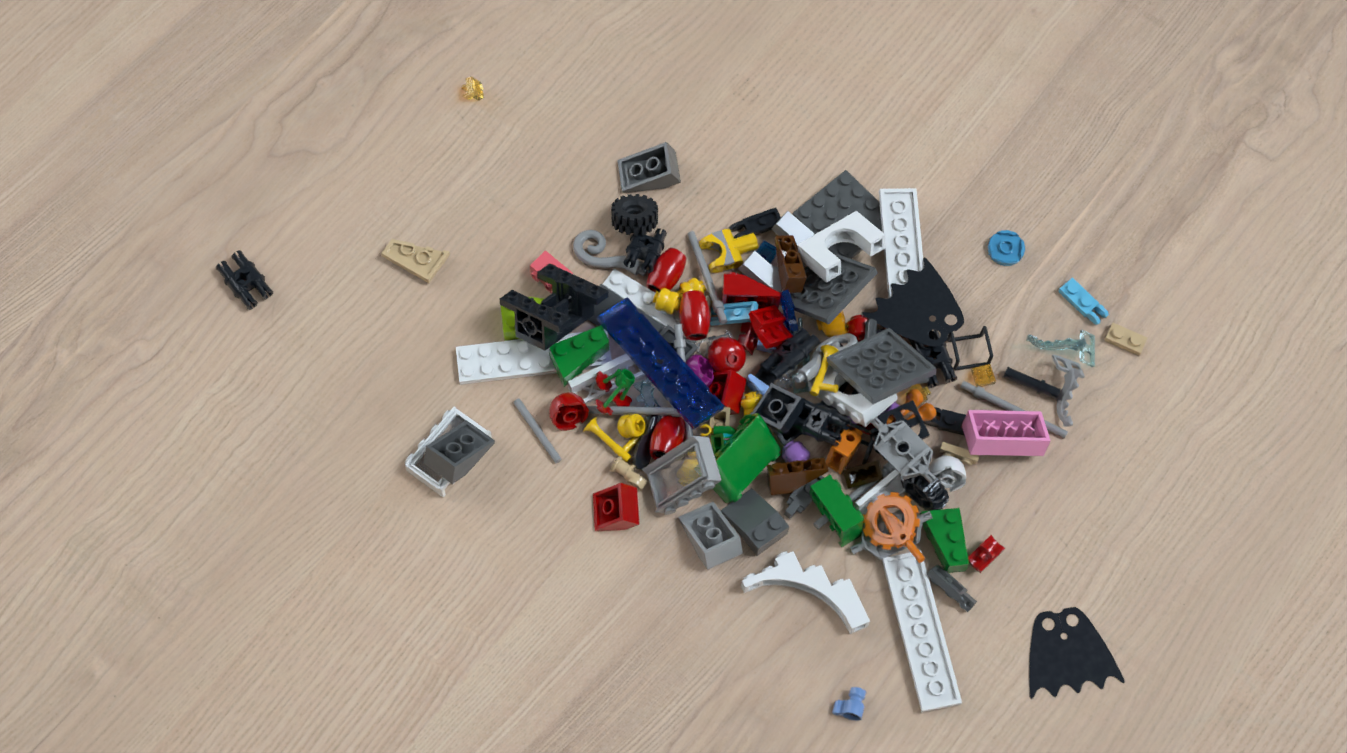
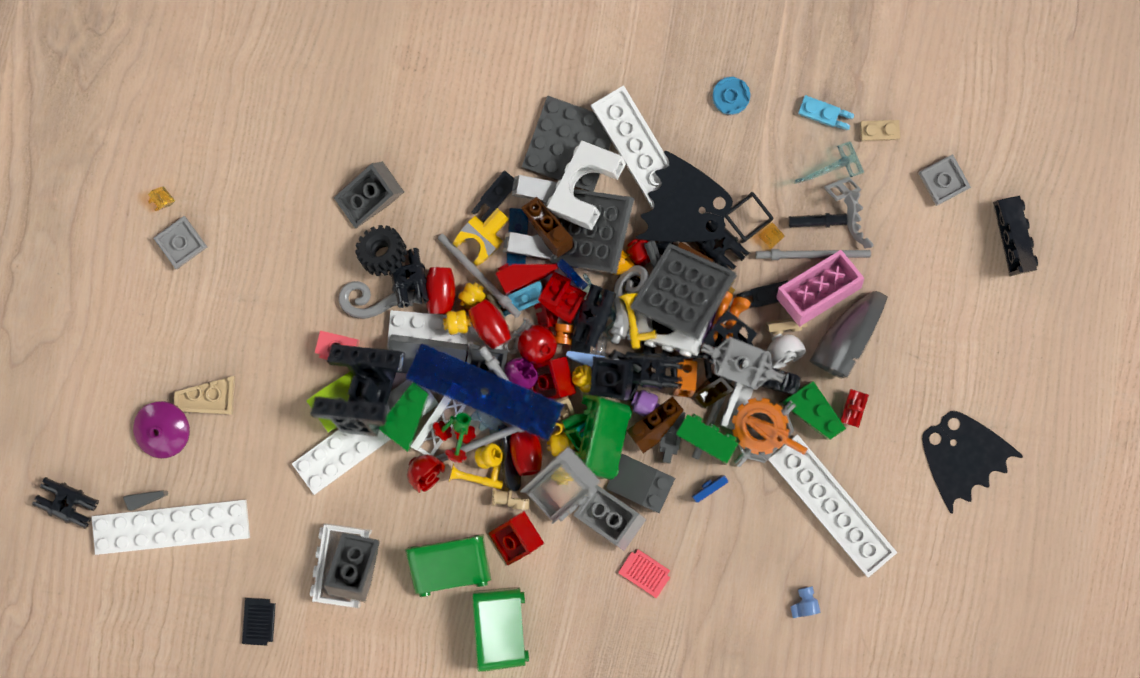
camera: 30 degrees left, 20 degrees up
(312, 310) = (139, 500): none -> dark grey slope
(320, 346) = (170, 527): none -> white plate
(346, 463) = (258, 621): none -> black window
(366, 271) = (169, 422): none -> magenta dish
(468, 129) = (180, 242): none -> light grey plate
(537, 430) = (407, 501): light grey bar -> none
(544, 495) = (448, 565): none -> green windscreen
(555, 576) = (499, 629): none -> windscreen
(716, 602) = (645, 572): none -> coral window
(754, 360) = (566, 337): none -> orange wheel
(816, 555) = (709, 487): none -> blue plate
(839, 597) = (748, 513): white arch -> none
(952, 587) = (838, 452): dark grey hinge -> none
(991, 496) = (849, 335): none -> dark grey panel
(1165, 406) = (944, 180): none -> light grey plate
(1208, 484) = (1015, 235): none -> black wedge

